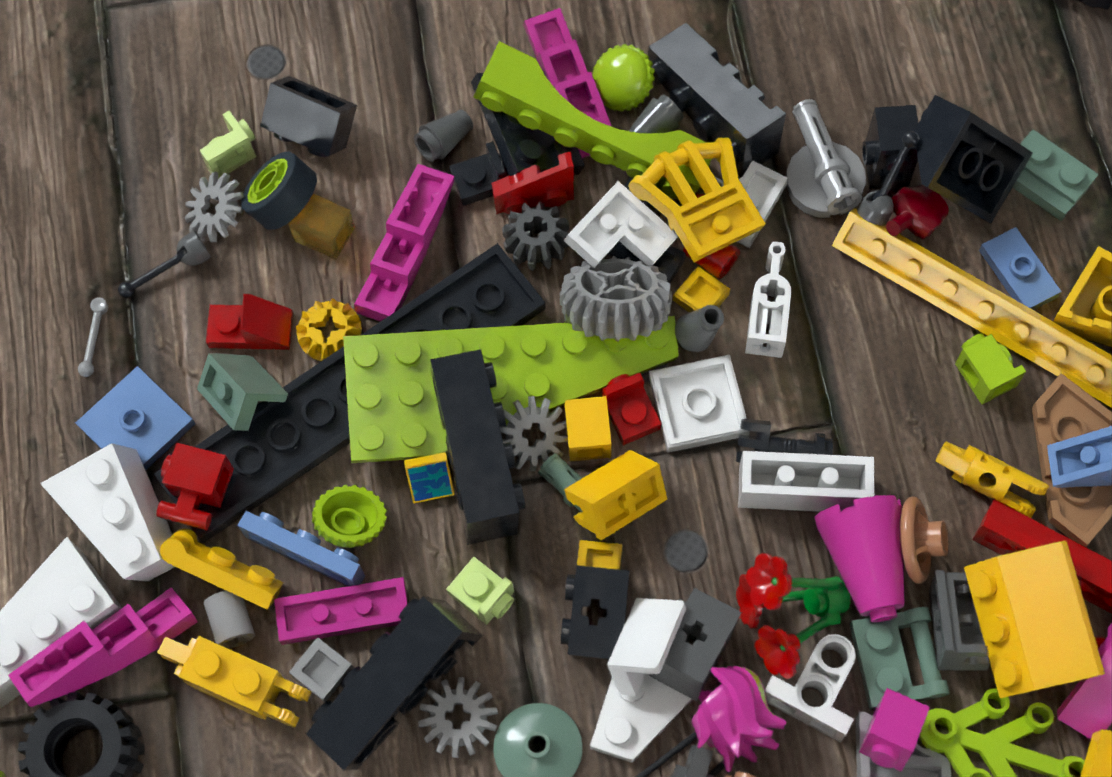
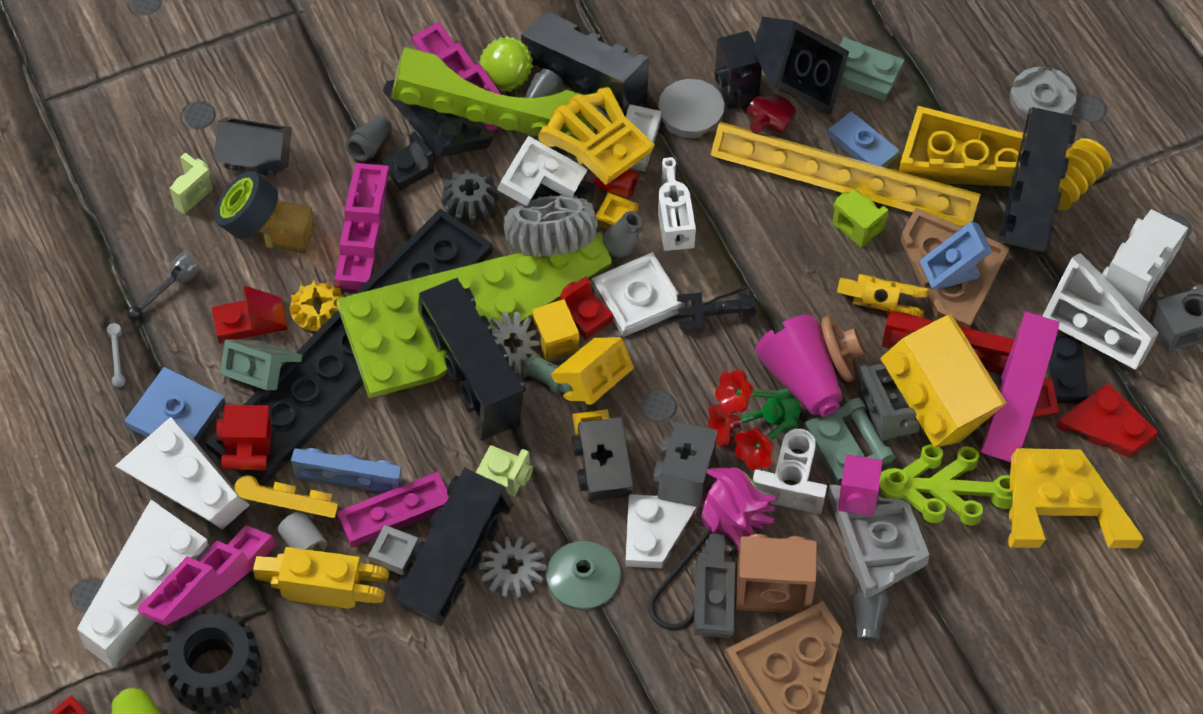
camera: 20 degrees left, 10 degrees down
(226, 210) = (203, 230): light grey gear -> none
(349, 516) = (379, 437): lime hat -> none
(429, 477) = (436, 394): tile -> none
(530, 186) = (458, 156): red wing -> none
(644, 642) = (647, 465): white panel -> none
(803, 480) = (734, 326): white brick -> none
(830, 170) = (694, 97): light grey pin -> none
(878, 205) = (739, 114): hinge -> none

